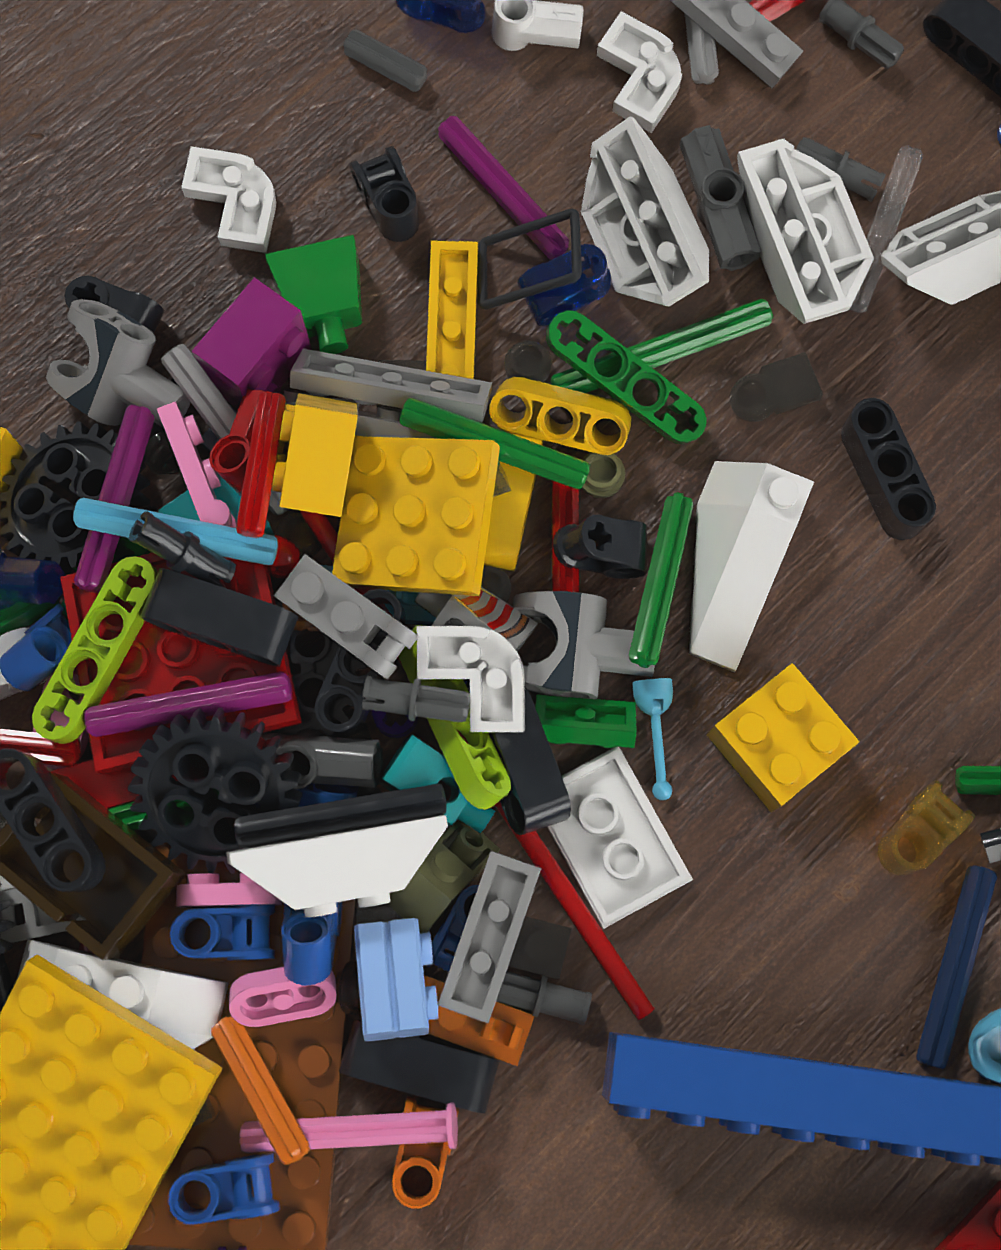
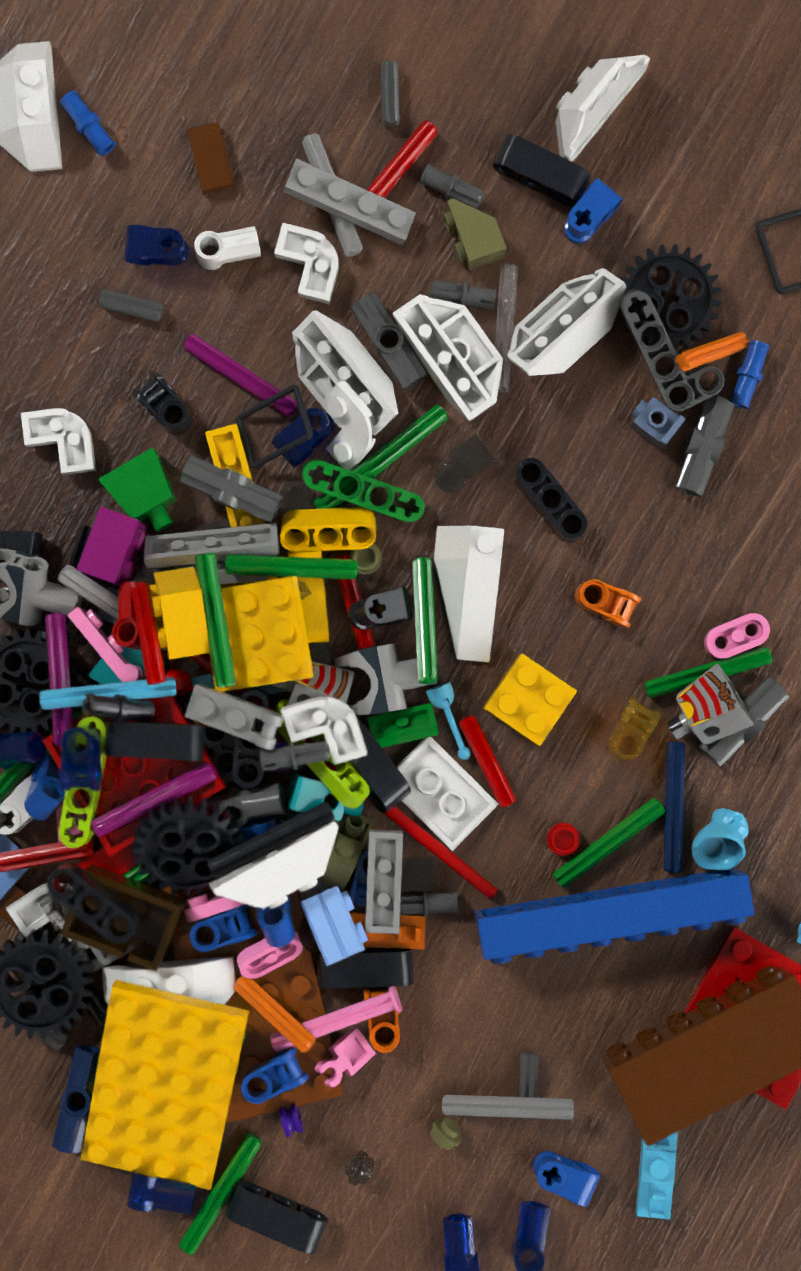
camera: 20 degrees left, 10 degrees up
(101, 612) = (81, 762): none -> clear blue piece
(353, 1196) = (349, 1055): none -> bright pink plate
(363, 474) = (215, 620): none -> green axle
(443, 319) = (231, 489): none -> dark grey piece
(642, 272) = (353, 417): none -> white plate
(693, 813) = (487, 761): none -> red axle
(775, 963) = (563, 839): none -> red plate
(843, 990) = (609, 842): none -> green axle
(878, 95) = (476, 235): none -> olive slope
(936, 637) = (613, 604): none -> orange piece

